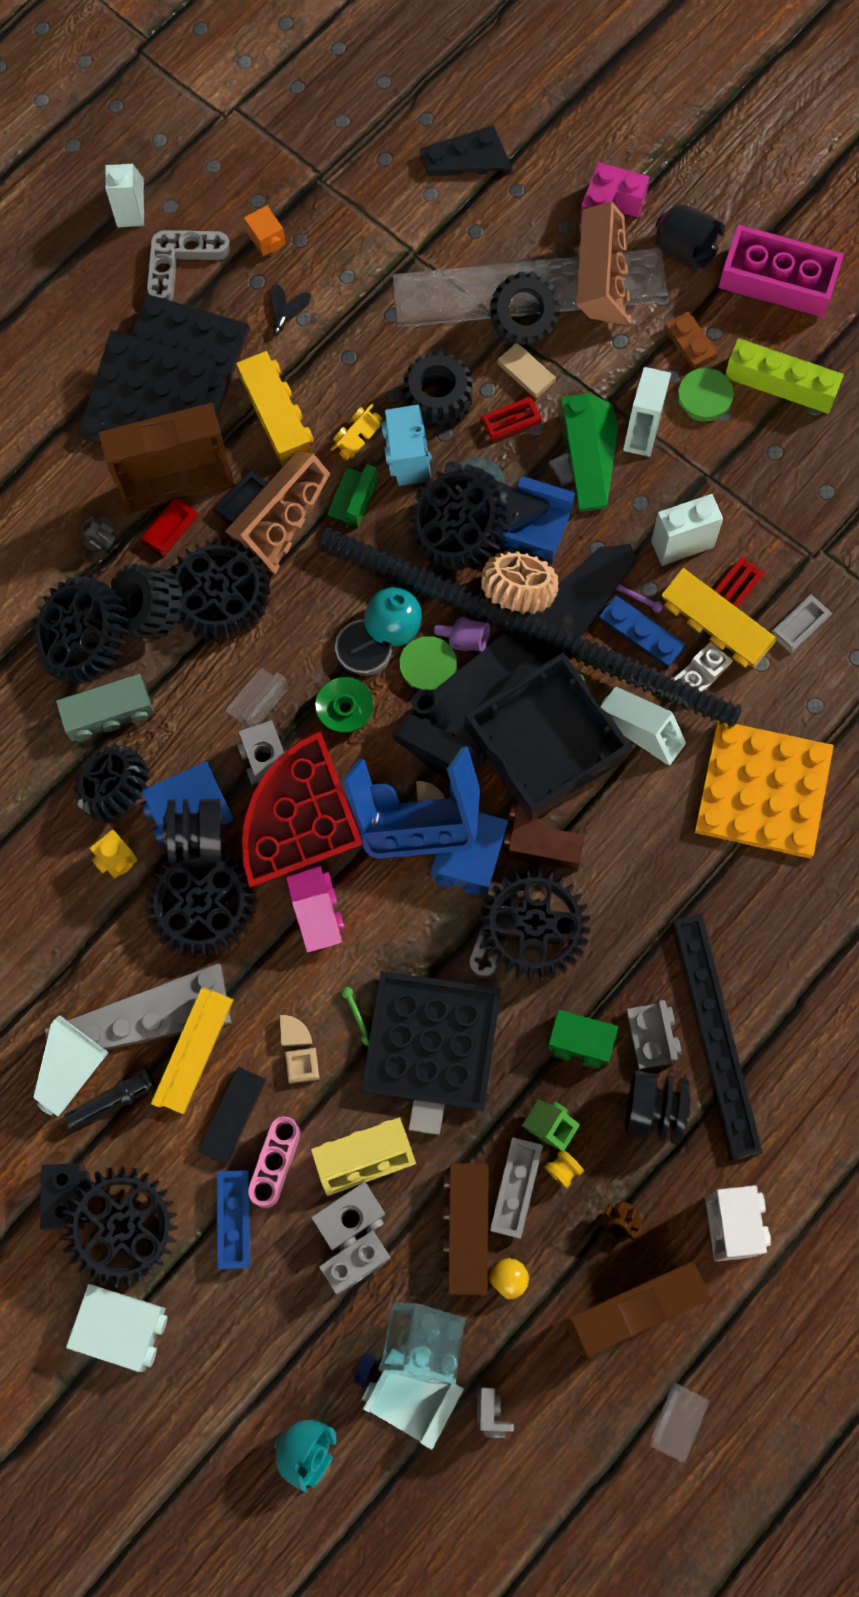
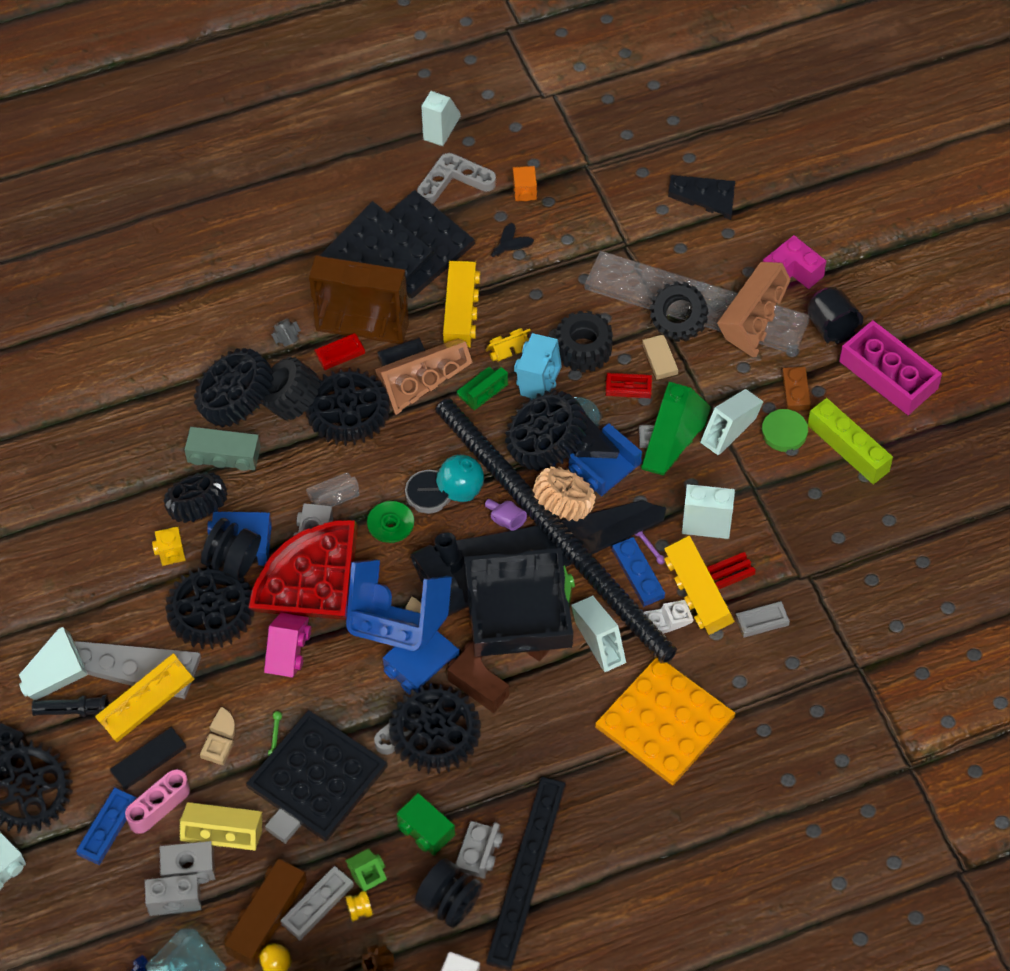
camera: 25 degrees right, 15 degrees down
(427, 663) = (468, 520): bright green tile -> none

